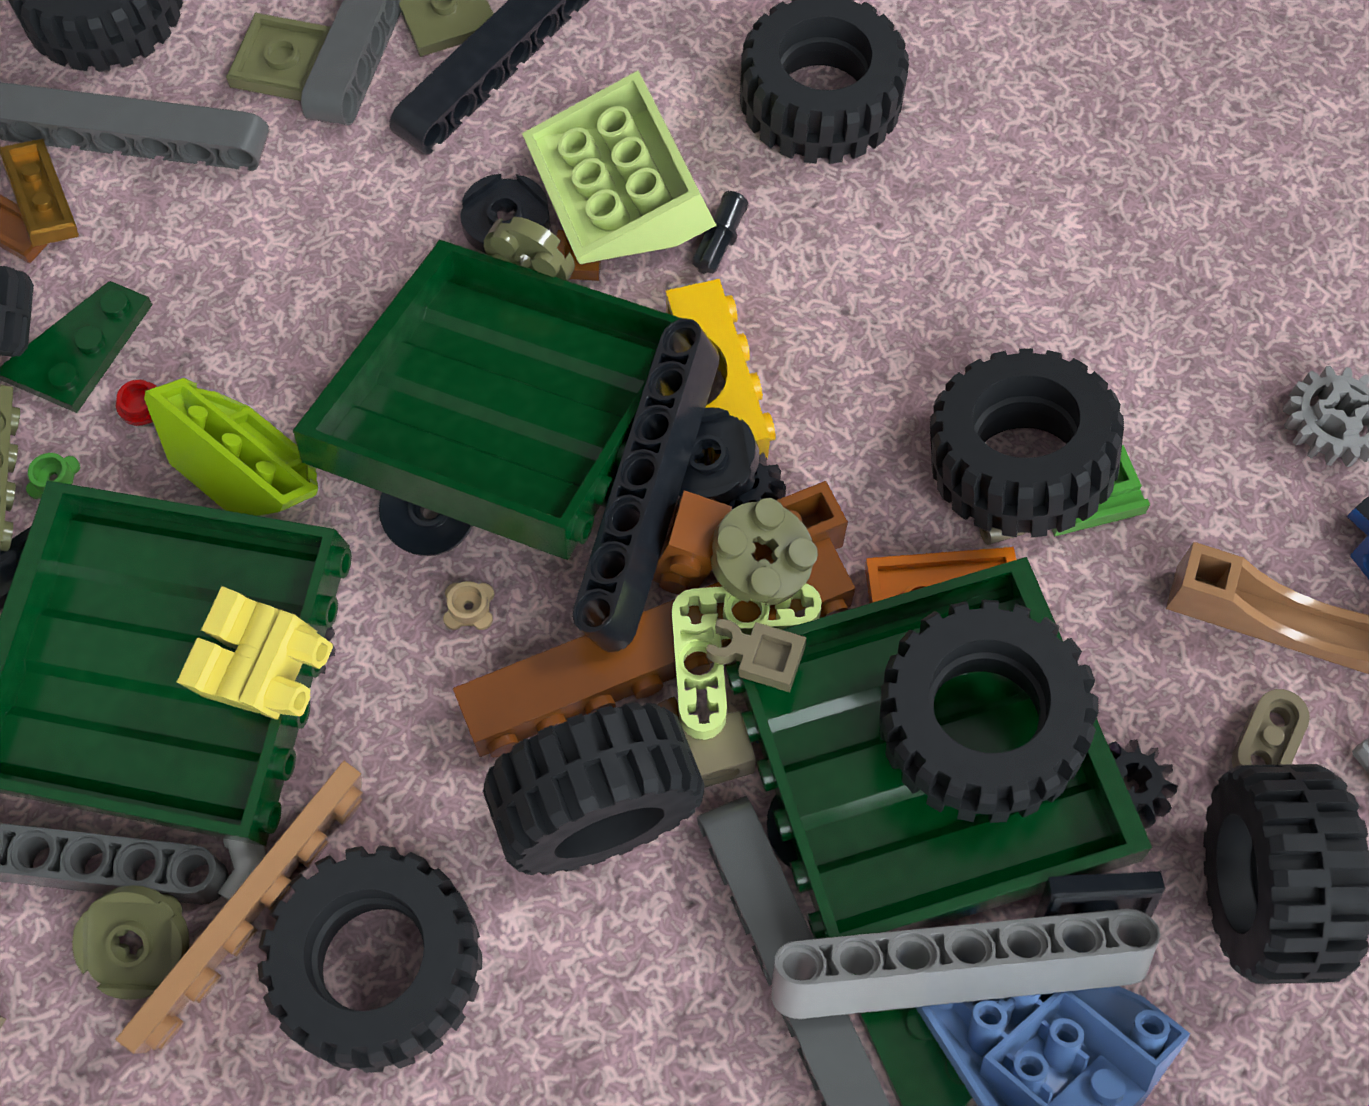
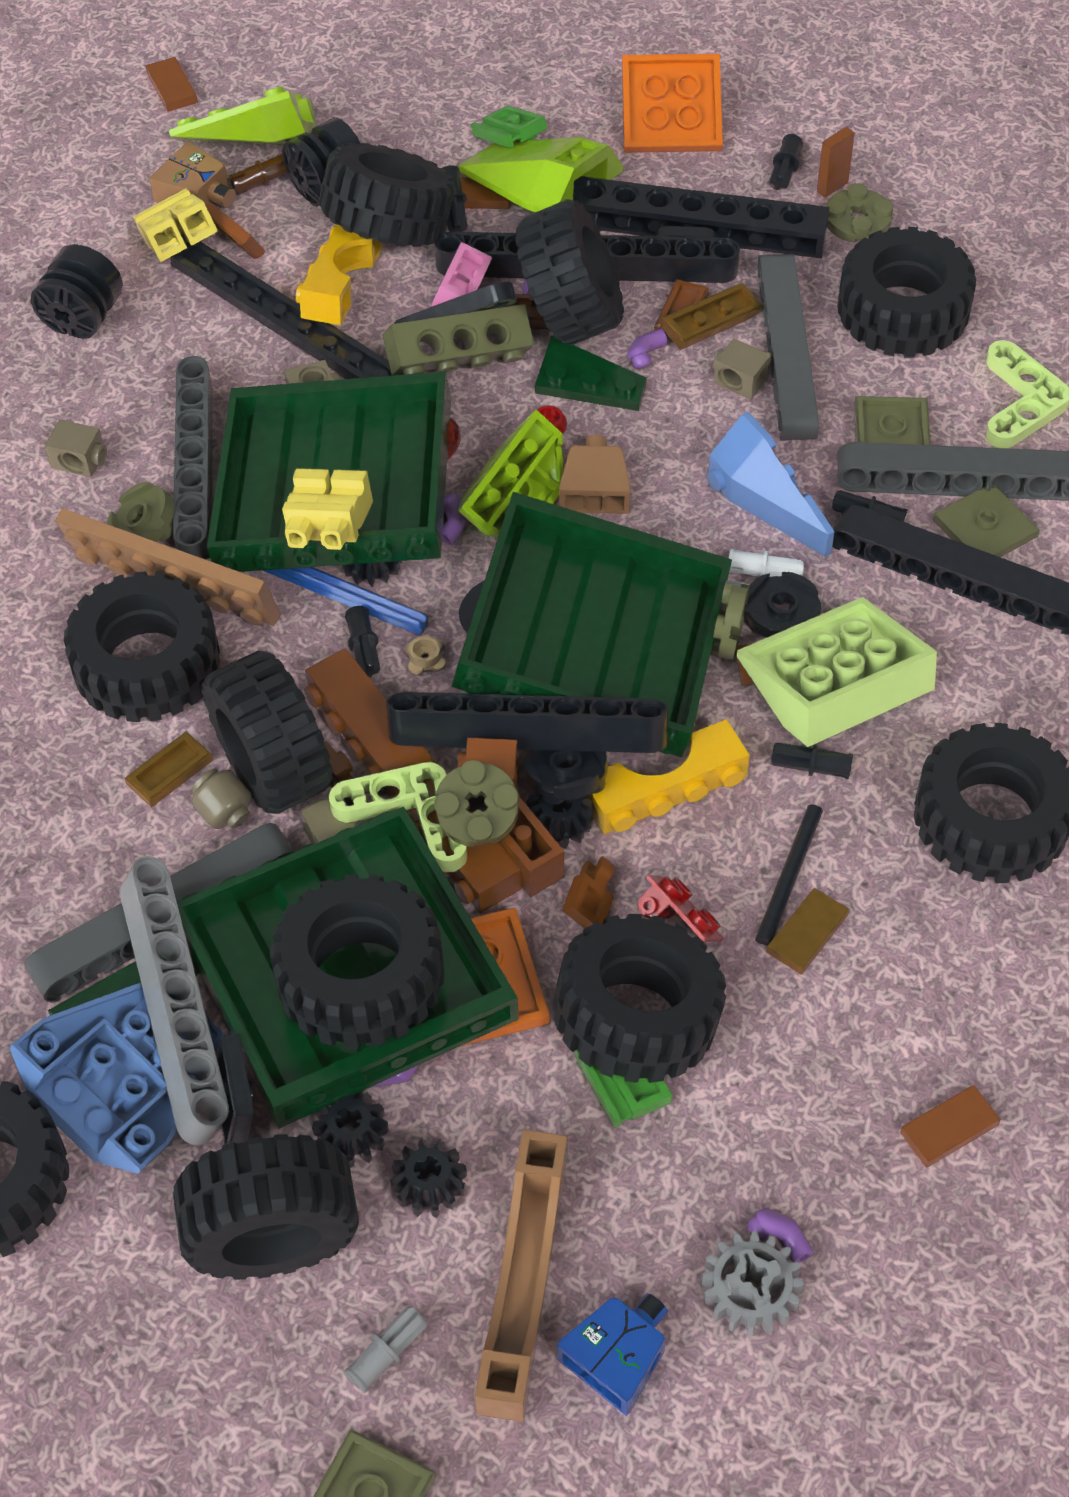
camera: 80 degrees right, 10 degrees down
(46, 465) = (476, 391): bright green plate -> none
(57, 278) = (642, 345): none -> medium lavender arm
(138, 177) = (741, 368): none -> dark tan brick
(255, 362) = (595, 478): none -> medium nougat torso
(328, 189) = (757, 482): none -> medium blue wedge
(361, 664) = (354, 595): none -> blue axle
(377, 122) = (843, 499): none -> black axle
(424, 675) = (362, 639): none -> black axle
(439, 219) = (761, 564): none -> white axle
(566, 952) = (168, 769): none -> pearl gold tile
(641, 881) = (221, 799): none -> dark tan head
(765, 655) = (395, 822): dark tan plate -> none
(858, 288) = (789, 875): none -> black bar
(863, 481) = (588, 897): none -> dark orange plate
(906, 394) = (671, 897): none -> red hinge
(931, 285) = (807, 931): none -> pearl gold tile
(1170, 215) = (950, 1126): none -> dark orange tile
(1220, 714) = (438, 1188): none -> black gear
(1270, 742) = (414, 1236): dark tan plate -> none
(1274, 380) = (784, 1228): none -> medium lavender arm

